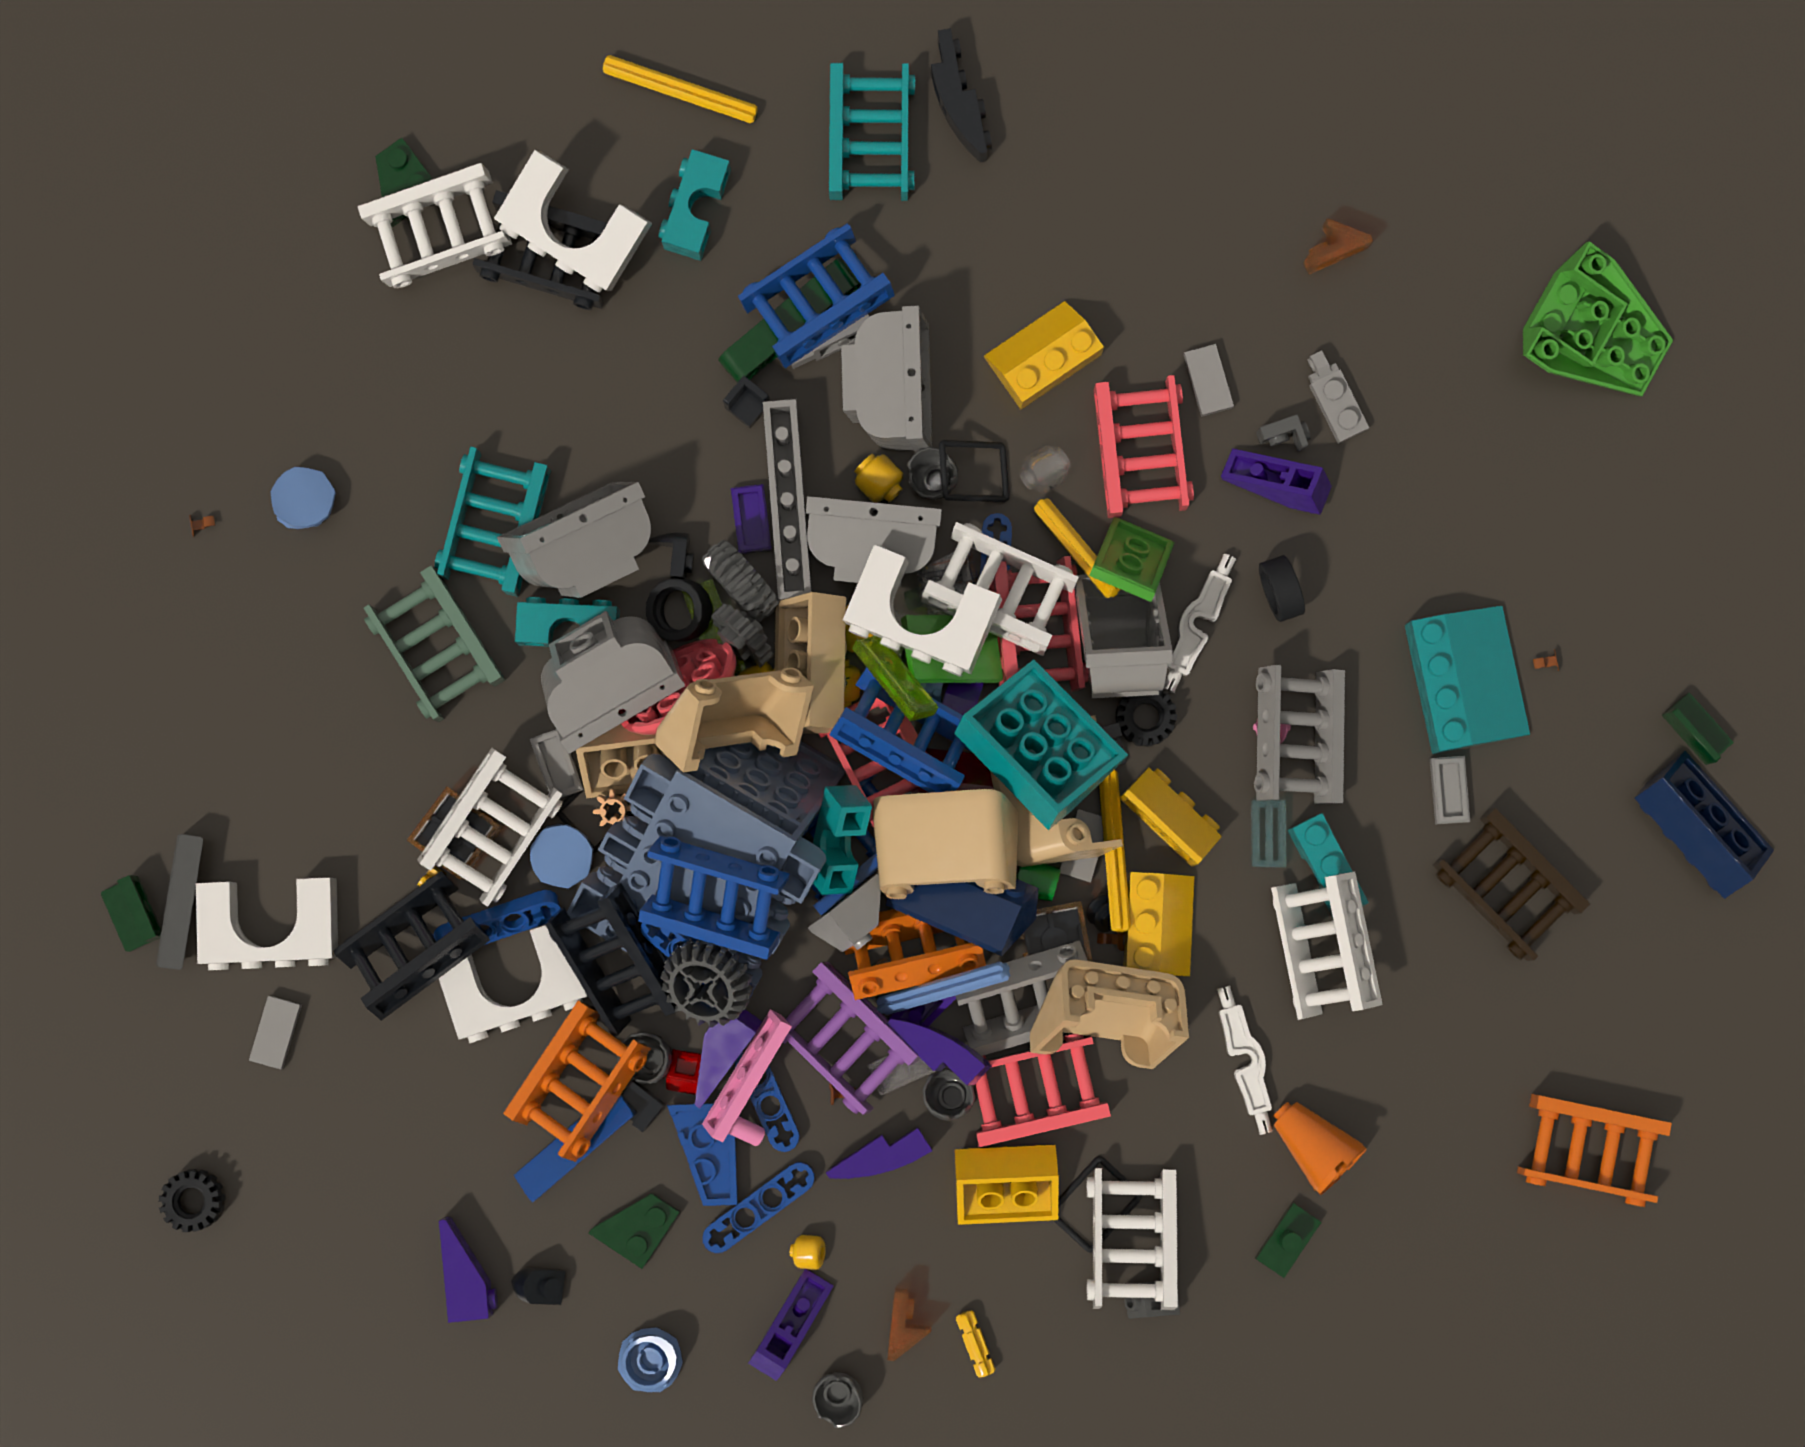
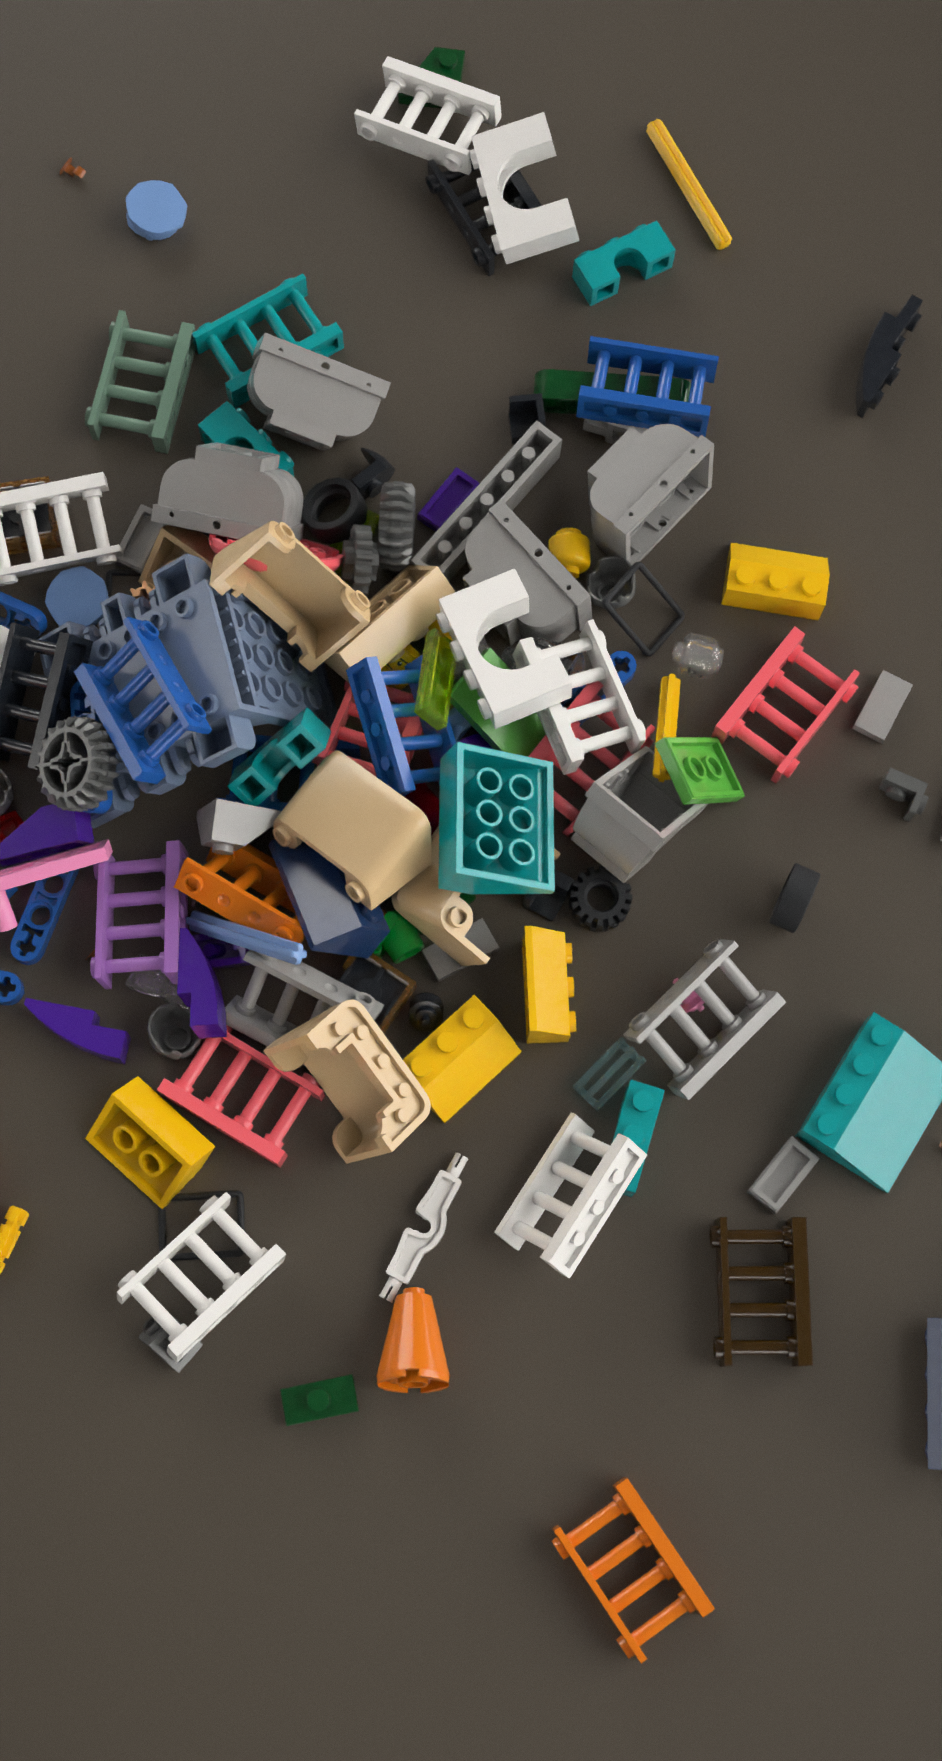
camera: 40 degrees right, 10 degrees down
(843, 116) = (786, 294): teal fence -> none
(1112, 939) = (411, 1036): dark orange piece -> none
(1115, 859) = (475, 974): yellow axle -> none
(1206, 607) = (690, 878): white piece -> none
(1279, 480) = (870, 824): dark purple slope -> none

